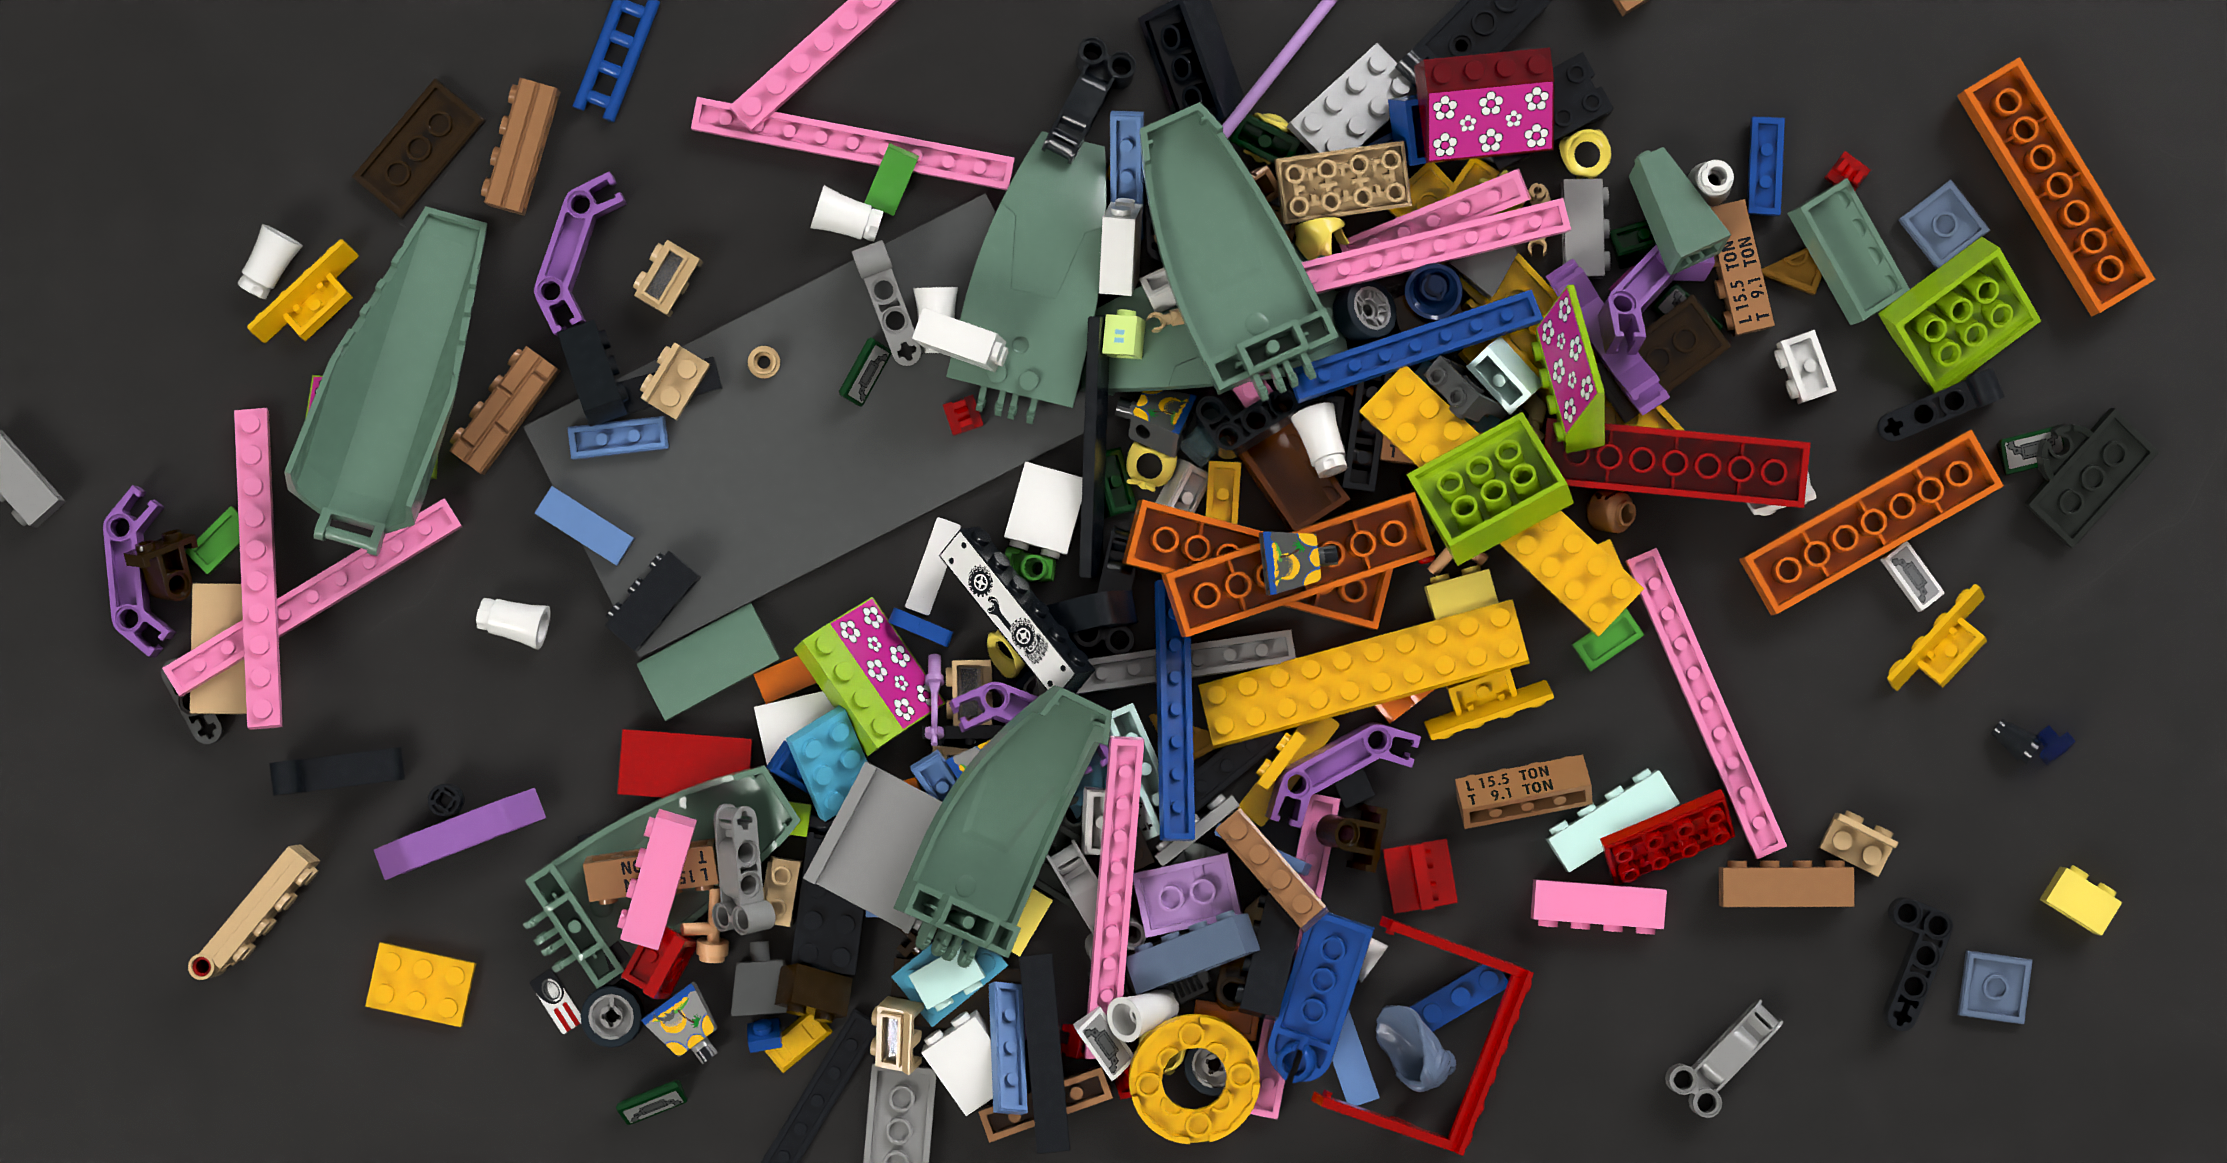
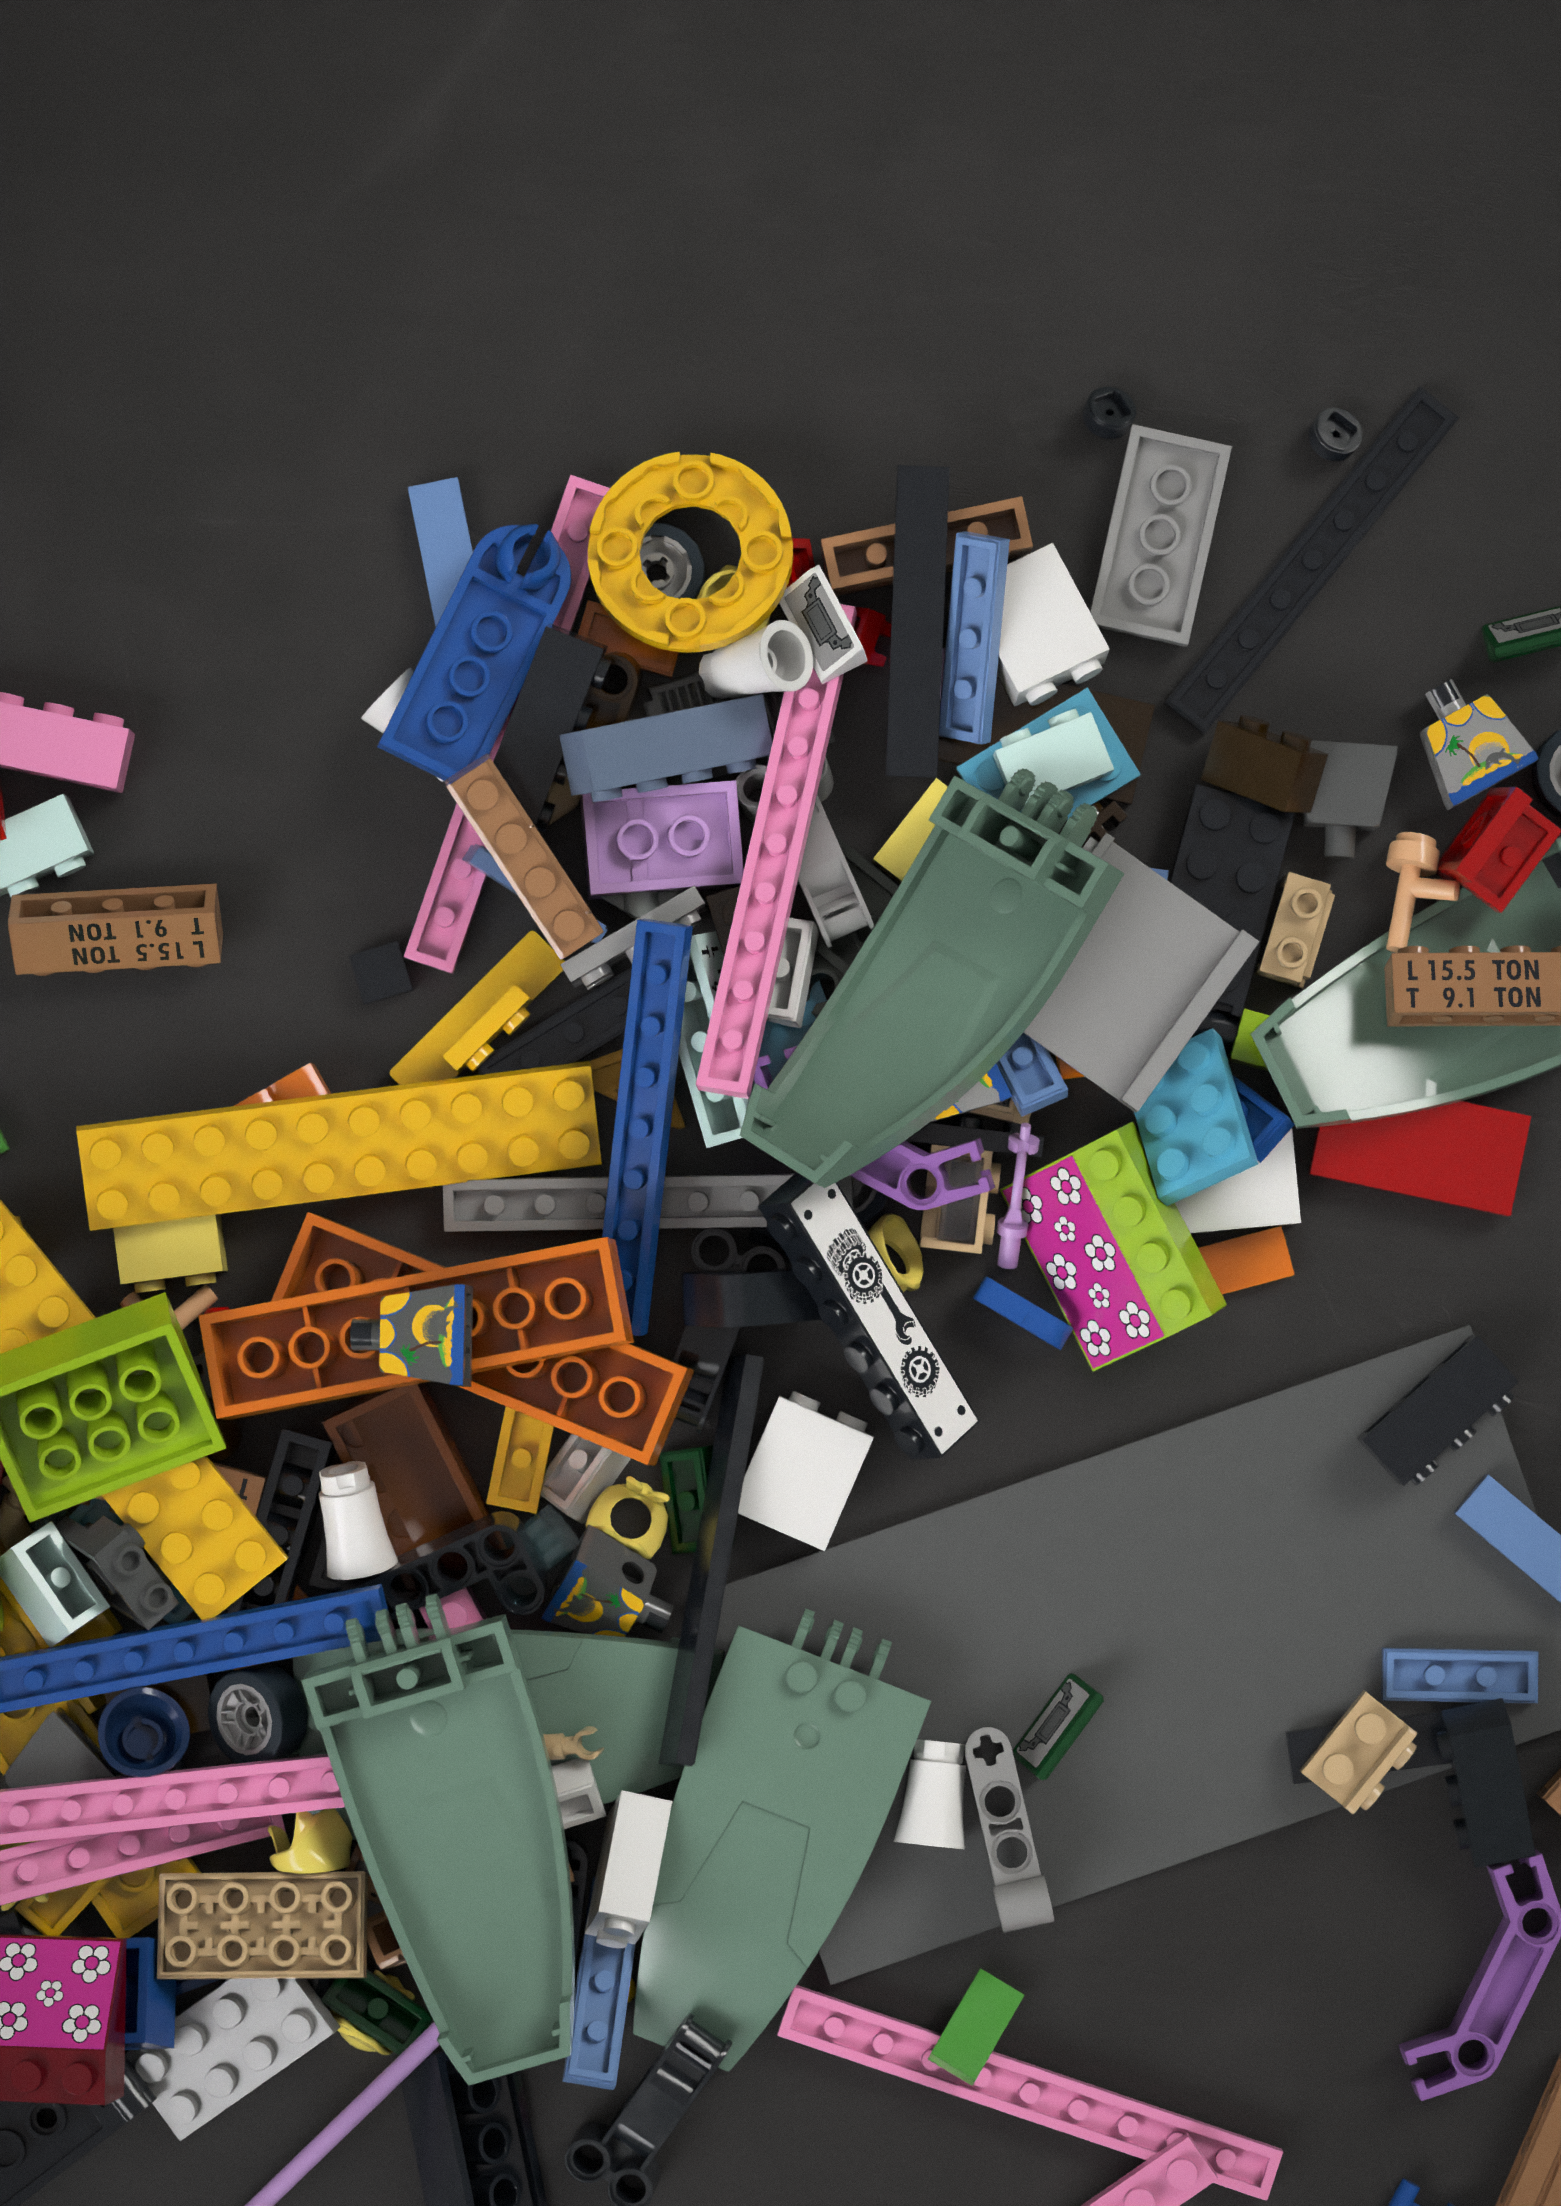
camera: 175 degrees left, 0 degrees up
(658, 879) = (1486, 971): bright pink brick -> none
(666, 277) = (1351, 1920): tan window -> none
(708, 662) = (1362, 1304): sand green slope -> none
(739, 873) = (1356, 964): light grey piece -> none
(759, 352) = (1230, 1770): tan plate -> none
(764, 1035) = (1349, 711): blue plate -> none
(798, 1041) = (1300, 695): yellow tile -> none
(846, 216) = (1055, 1978): white plant -> none
(896, 1034) = (1144, 683): tan window -> none
(931, 568) = (993, 1404): white sticker -> none
(960, 340) = (900, 1755): white brick -> none
(963, 415) = (912, 1637): red tile -> none
(1025, 565) = (846, 1389): bright green plate -> none
(1124, 335) = (641, 1729): yellowish green brick -> none
(1333, 764) = (404, 1012): medium lavender piece -> none
(1355, 835) = (387, 896): dark brown pin -> none
(1413, 1049) = (344, 554): sand blue hair -> none
(1420, 876) = (297, 820): red bracket -> none
(1460, 996) = (261, 627): blue plate -> none
(1486, 700) = (155, 1078): yellow bracket -> none
(1488, 1061) = (233, 514): red piece -> none

